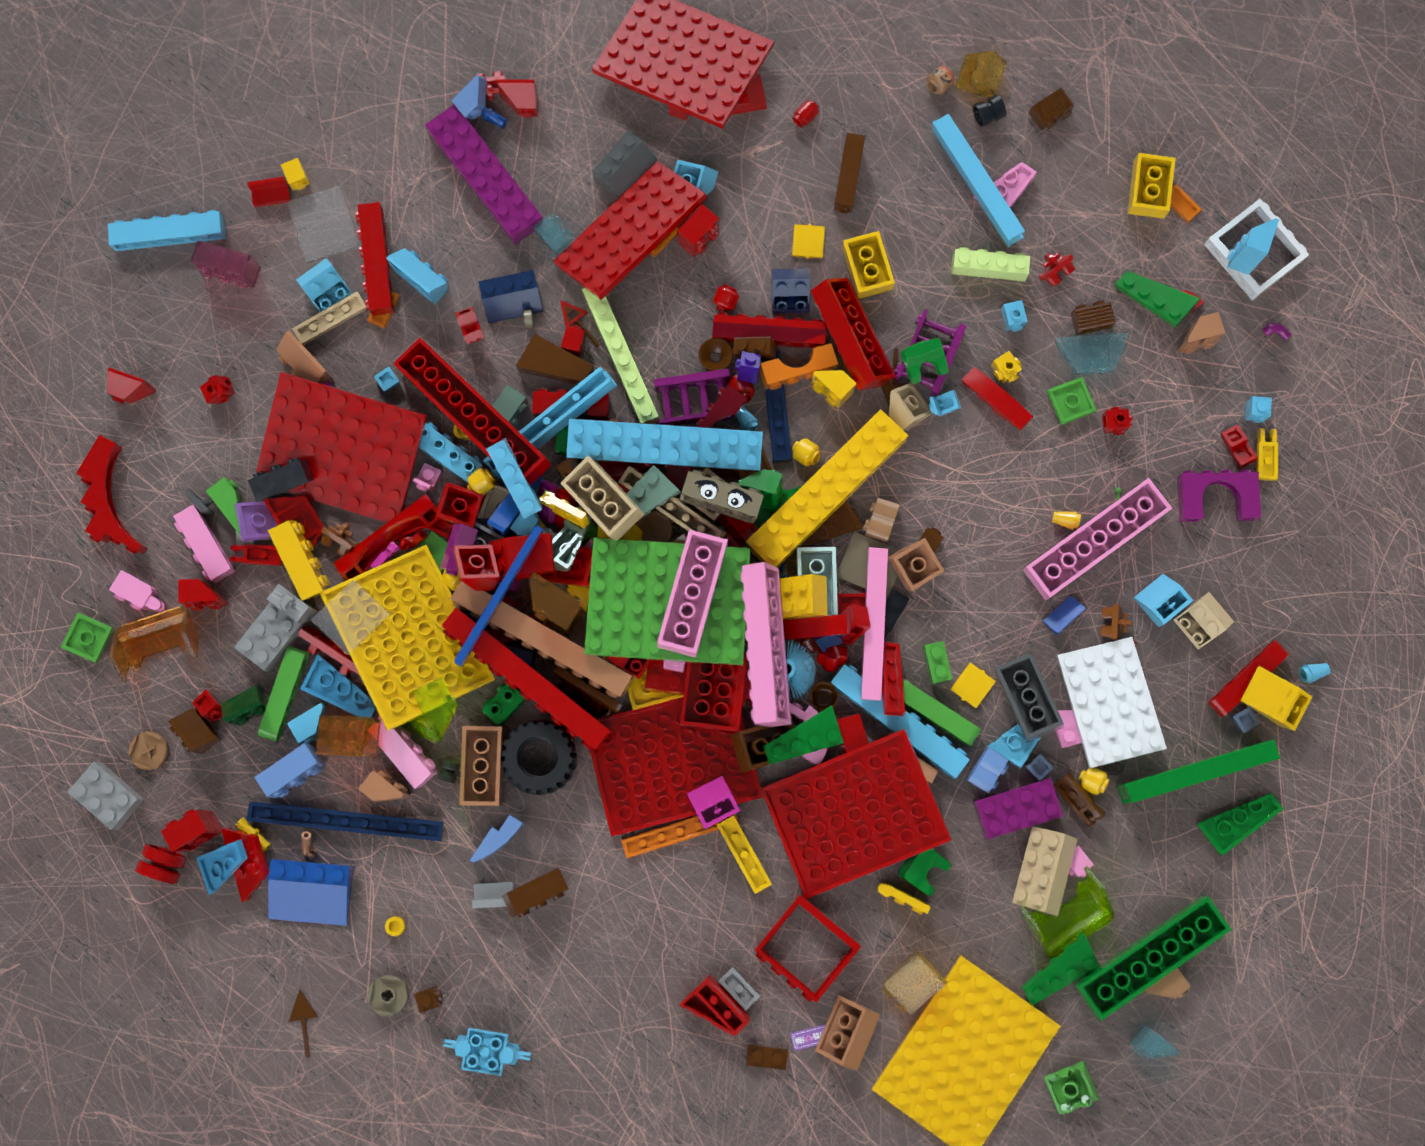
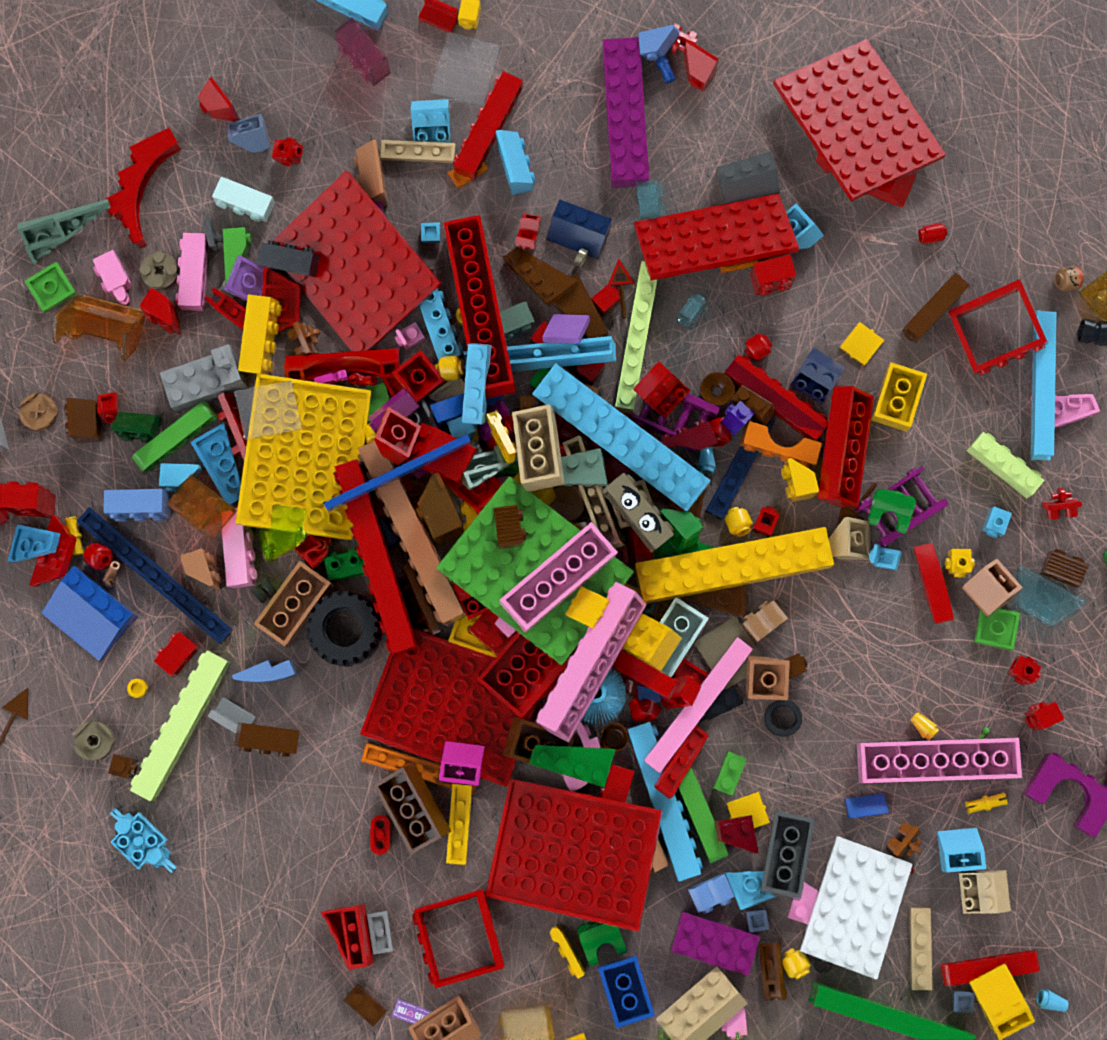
camera: 35 degrees right, 0 degrees up
(53, 591) = (49, 231): none -> sand green wedge
(166, 554) = (156, 261): none -> dark tan plate
(173, 395) = (249, 134): none -> sand blue slope
(206, 455) = (243, 200): none -> light aqua brick
(285, 837) = (97, 556): none -> red head
(409, 874) = (176, 654): none -> red brick
(454, 933) = (180, 726): none -> yellowish green brick
(468, 709) = (313, 550): none -> red brick
(507, 357) = (539, 276): none -> reddish brown wing
(557, 385) = (566, 329): none -> medium lavender tile
(622, 579) = (508, 526): none -> reddish brown brick
(651, 303) = (692, 311): none -> clear light blue brick
(670, 384) = (661, 389): none -> red slope
(683, 908) = (378, 834): none -> red plate
(696, 867) = (412, 808): none -> reddish brown brick
(733, 602) = (587, 607): none -> yellow piece
(831, 430) = (771, 515): none -> red brick
(886, 138) = (989, 298): none -> red window
(949, 574) = (797, 715): none -> black tyre
(973, 896) = (626, 991): none -> blue brick
(976, 706) = (738, 833): none -> dark red wing
(1046, 370) = (992, 587): none -> nougat slope
(1155, 447) = (1043, 715): none -> red brick
(1157, 548) = (986, 803): none -> yellow pin
(1183, 701) = (920, 949): none -> tan plate

